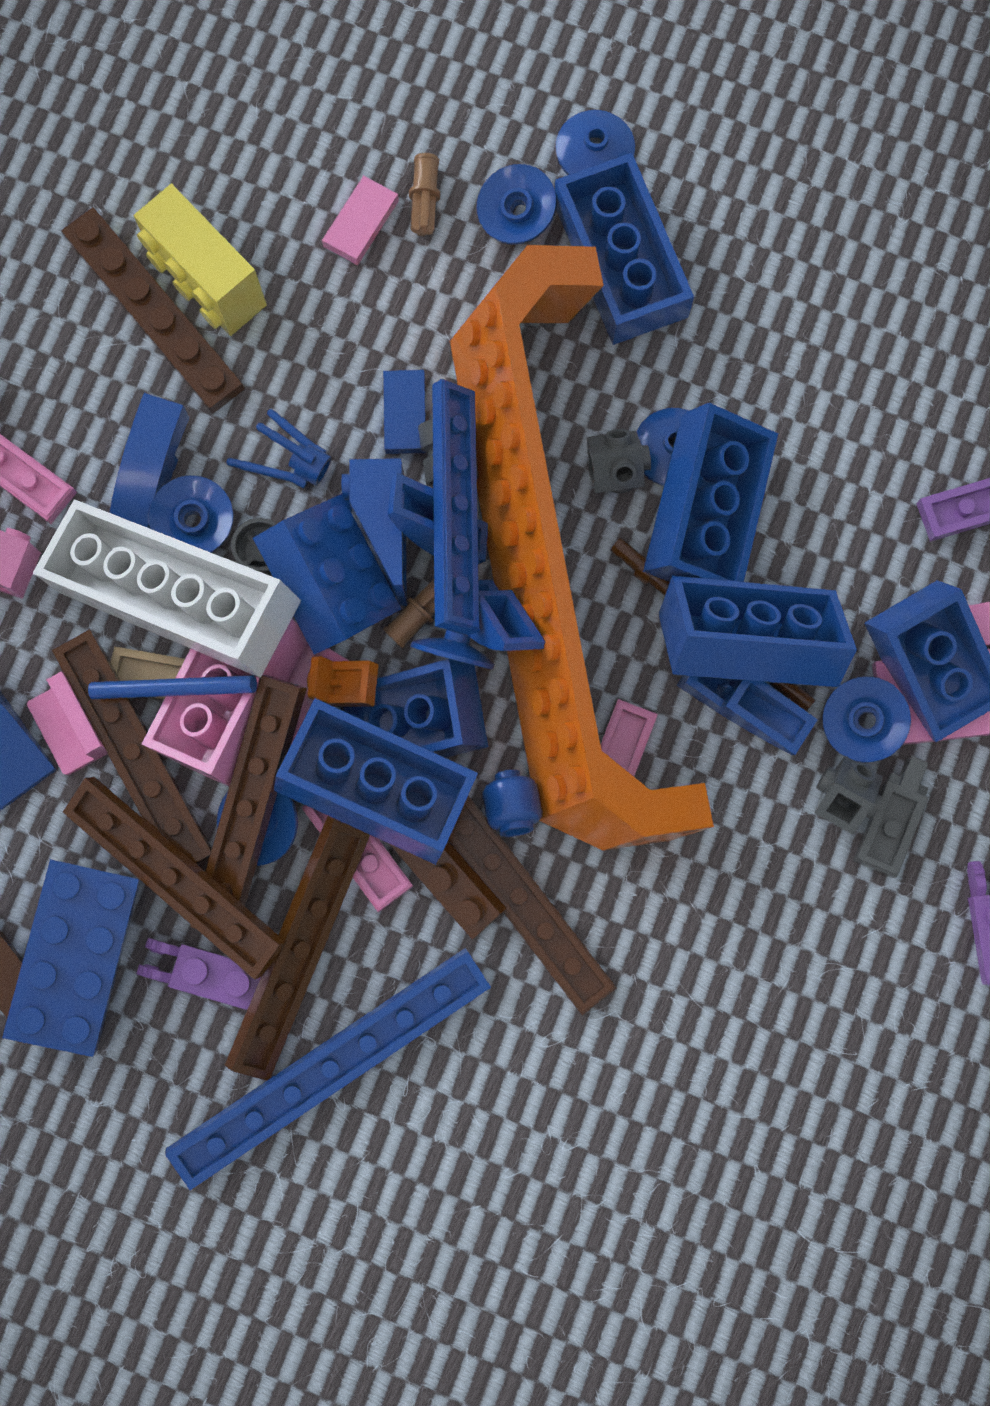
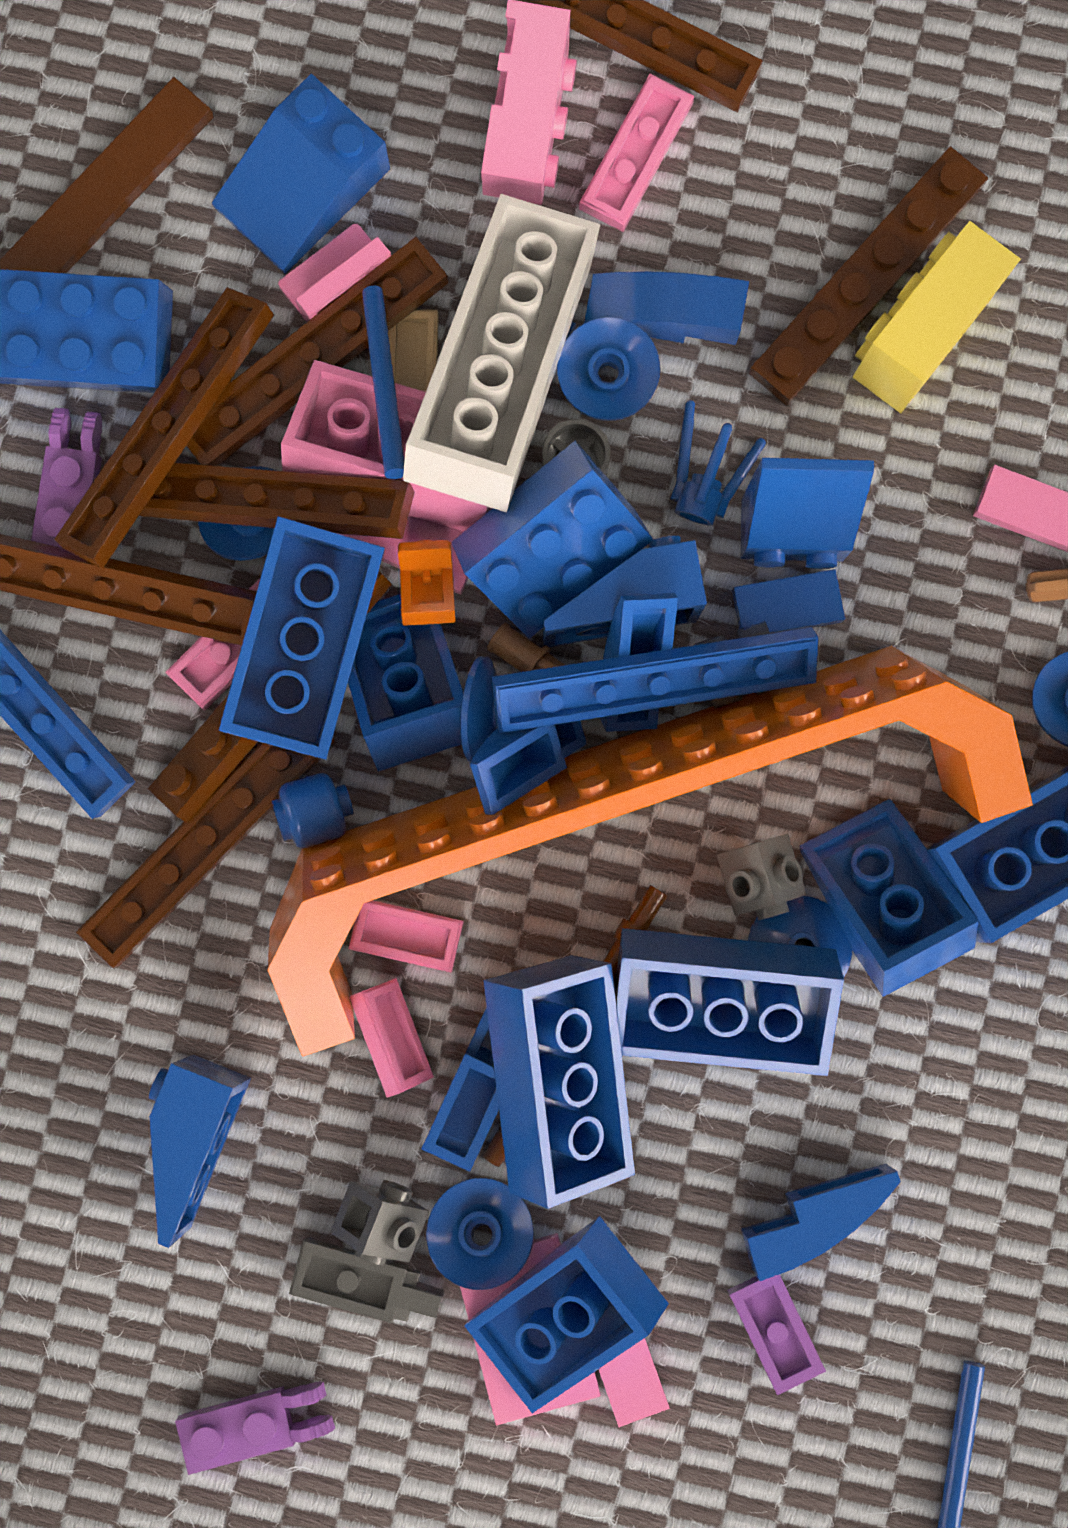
camera: 80 degrees right, 5 degrees up
(338, 381) = (803, 511): none -> blue slope
(645, 371) = (890, 897): none -> blue slope
(704, 765) = (391, 1037): none -> bright pink tile
(752, 929) = (188, 1132): none -> blue slope
(885, 464) = (818, 1220): none -> blue slope

